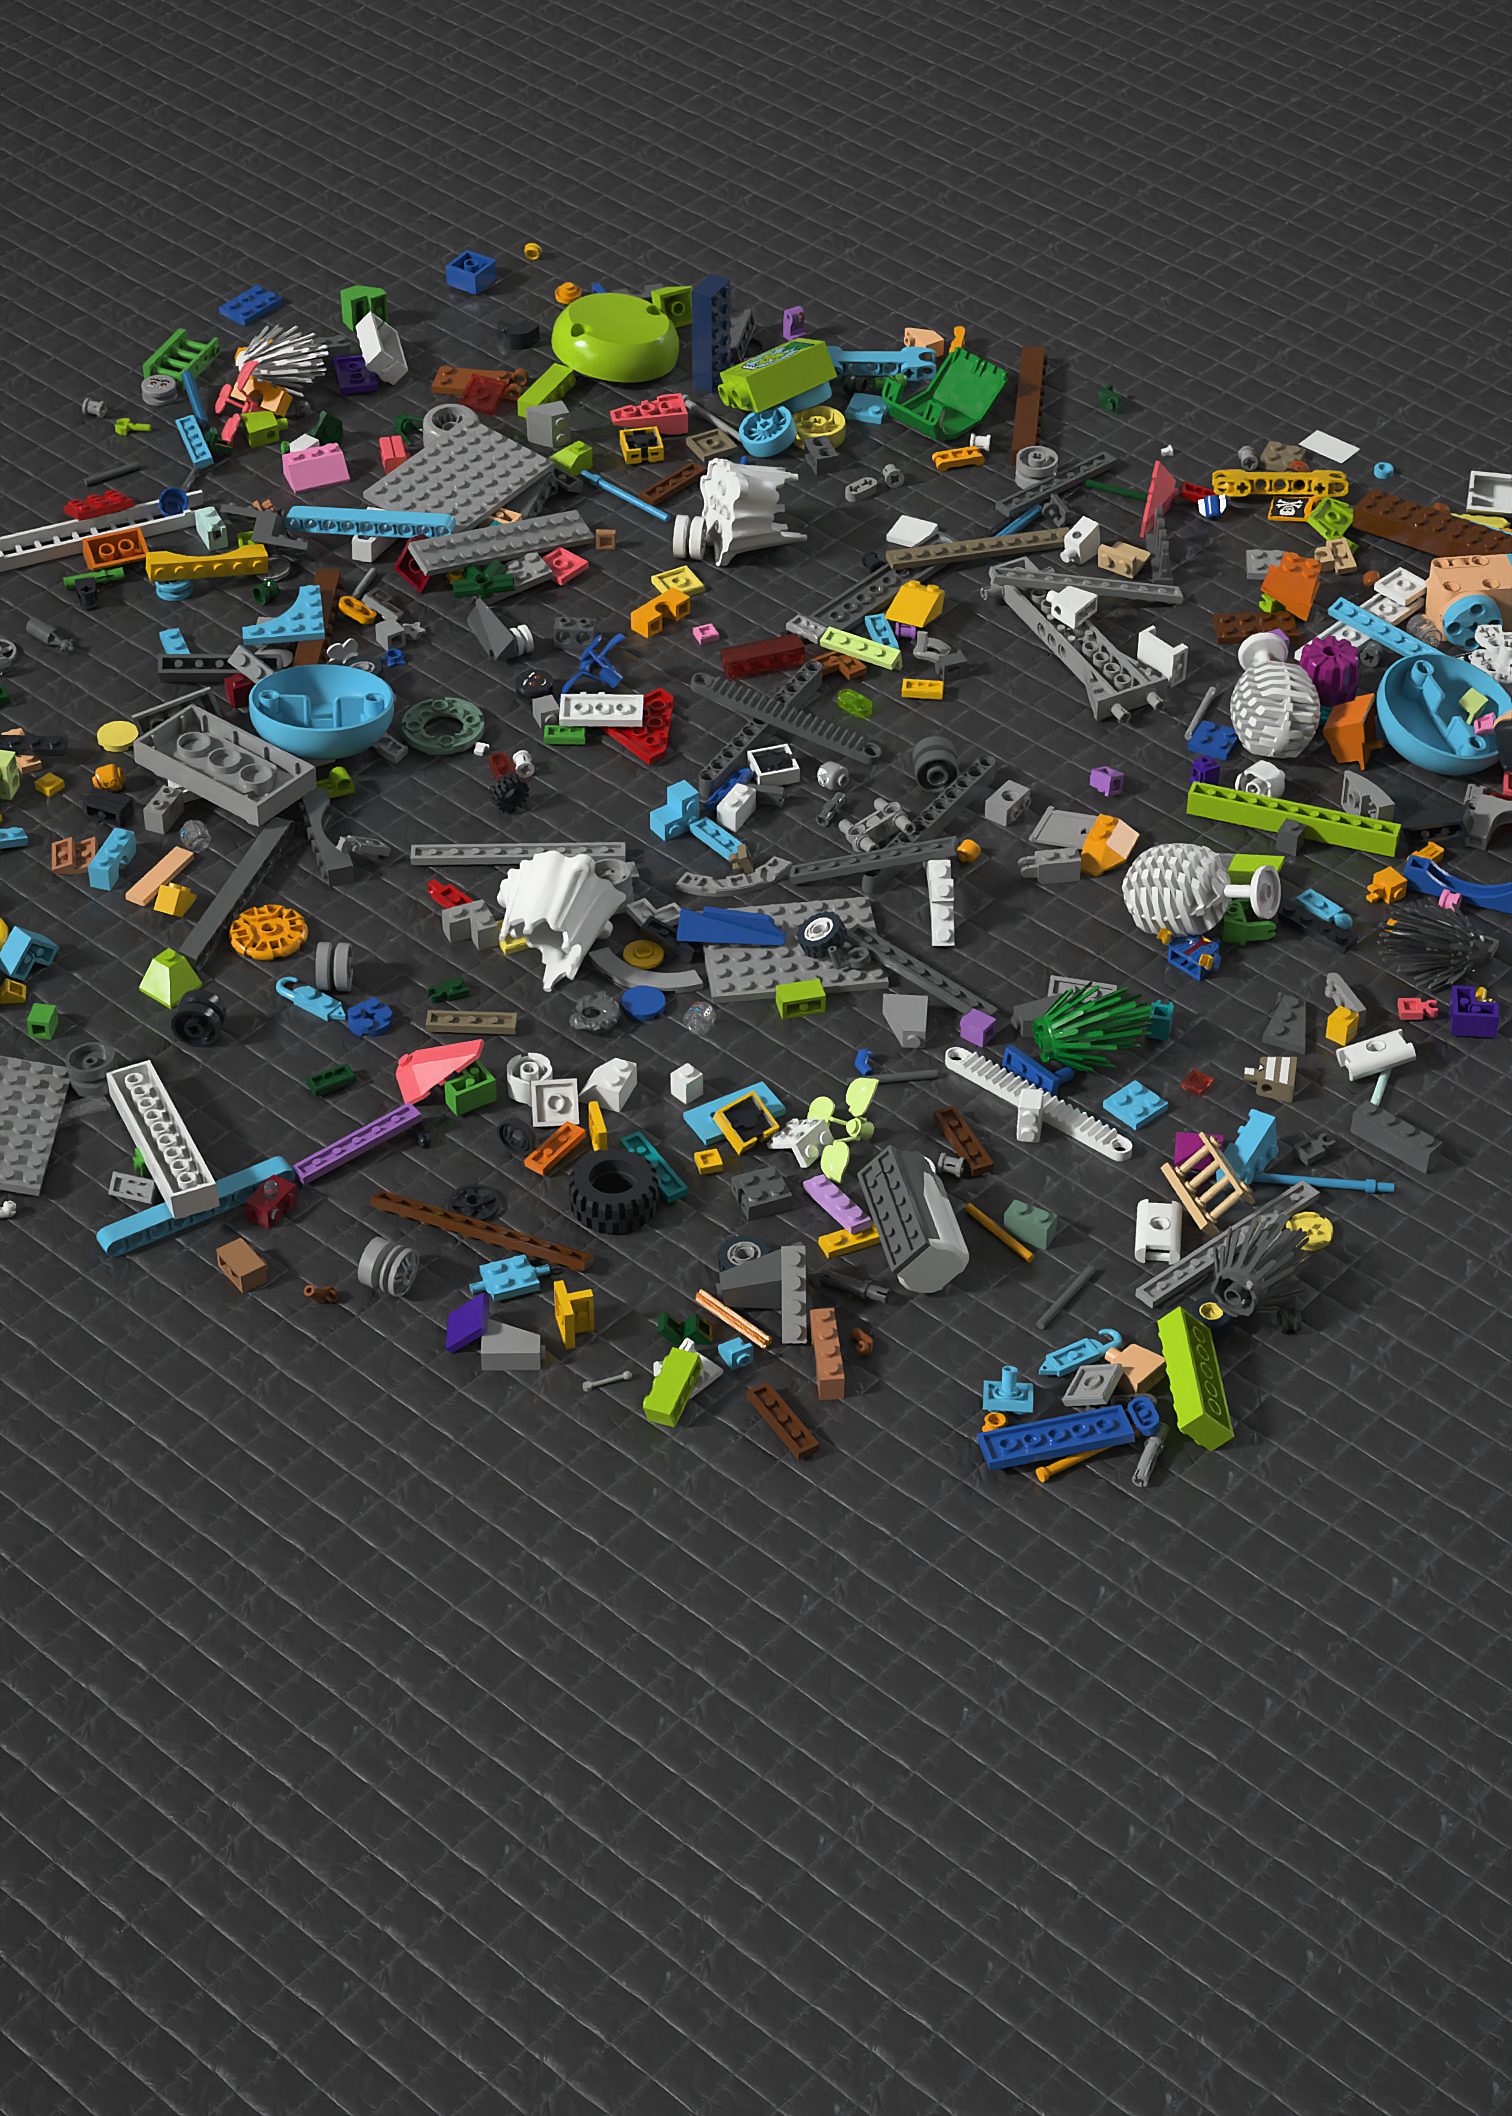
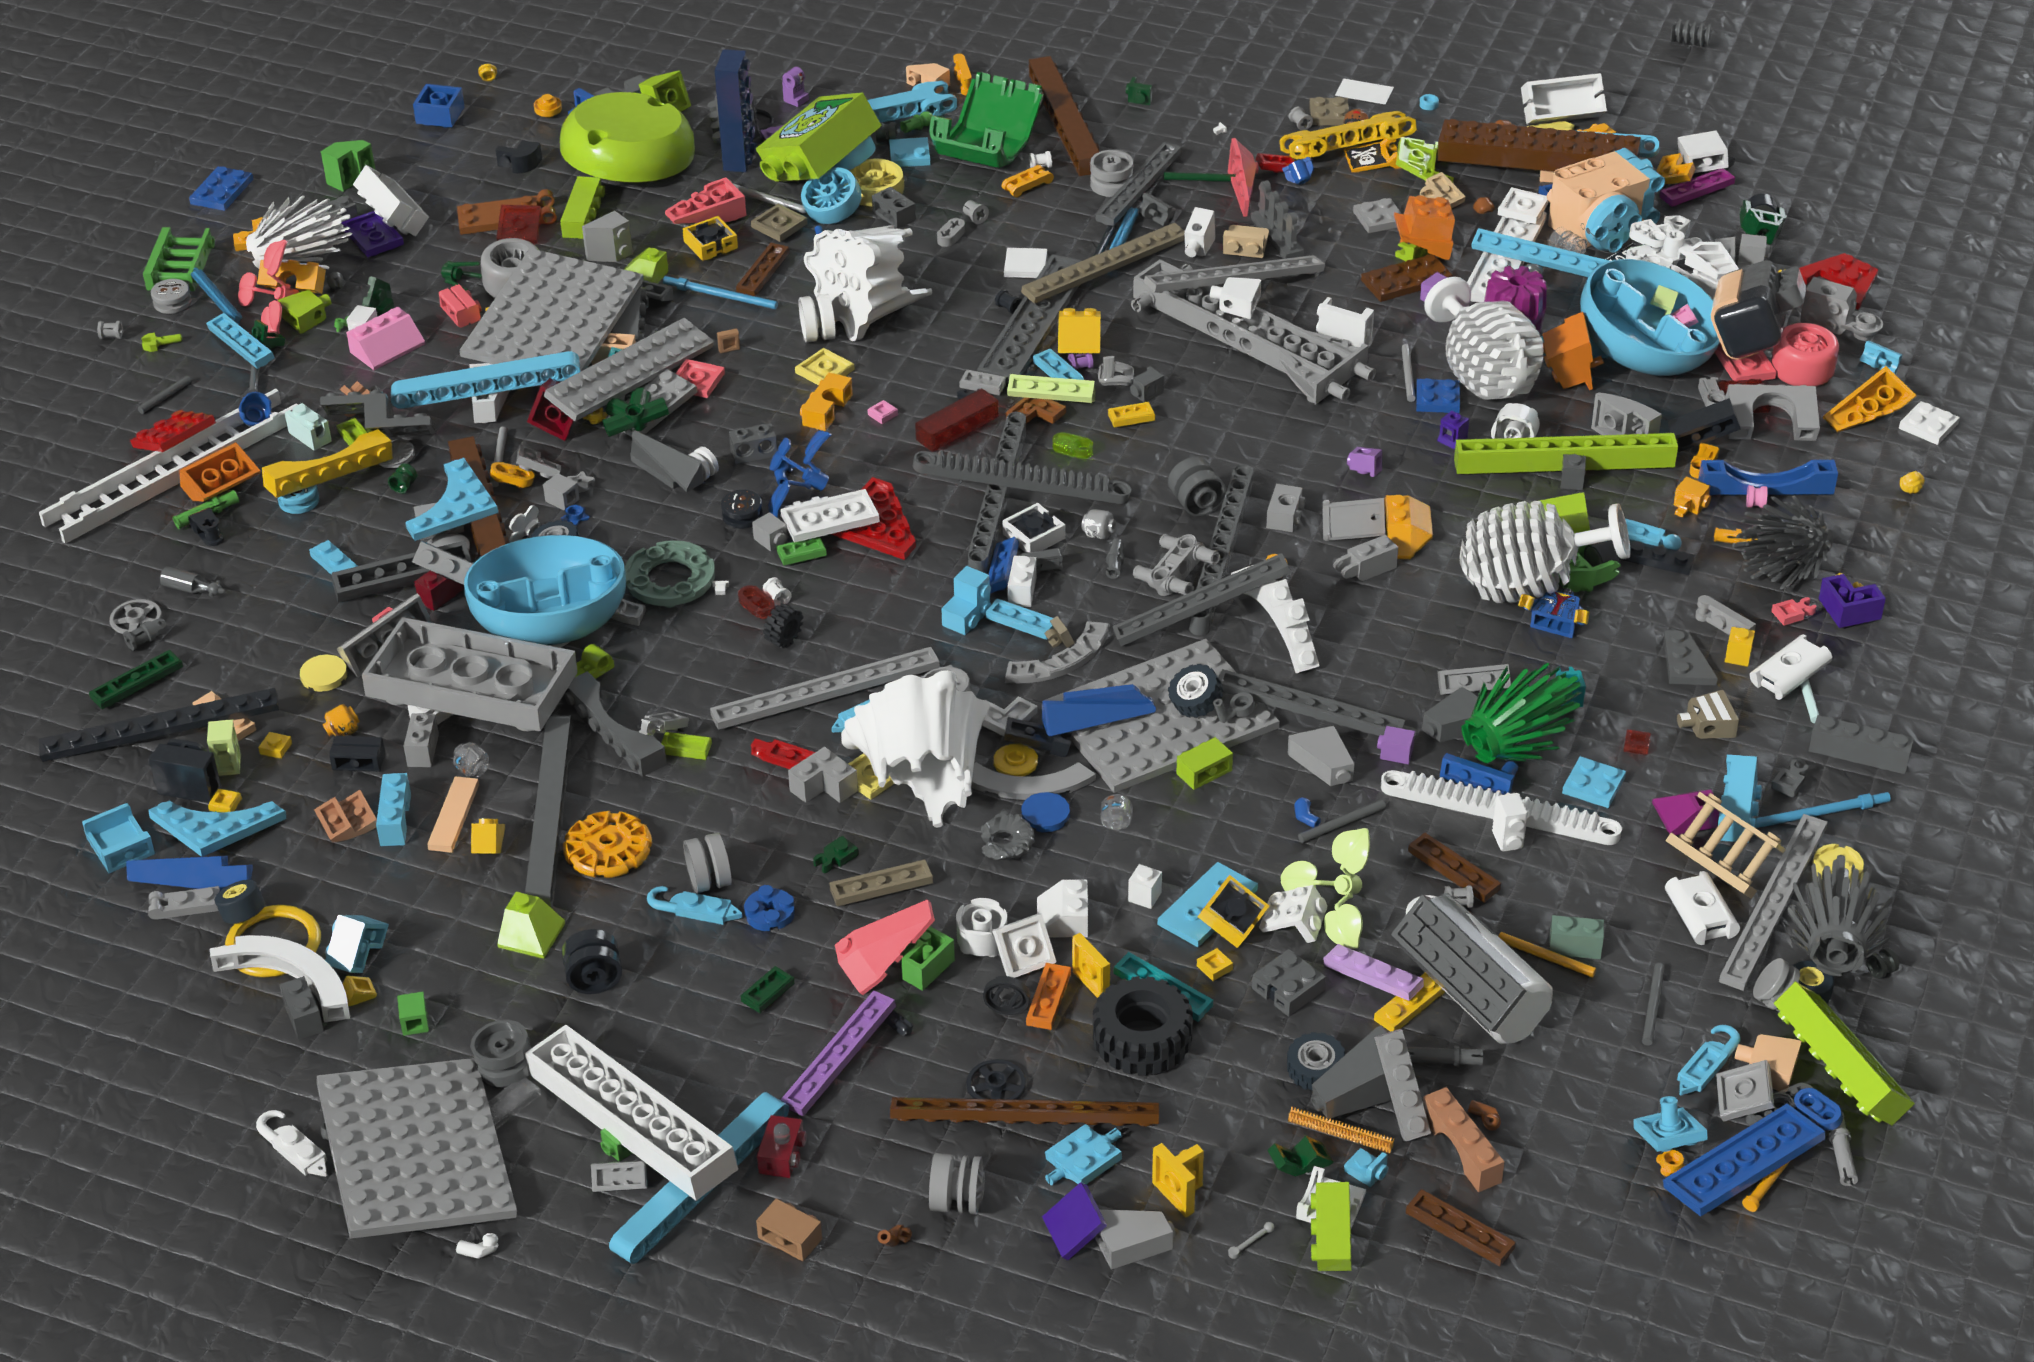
camera: 20 degrees left, 0 degrees up
(377, 870) = (686, 745): none -> lime tile
(1178, 1301) = (1775, 981): none -> light grey head

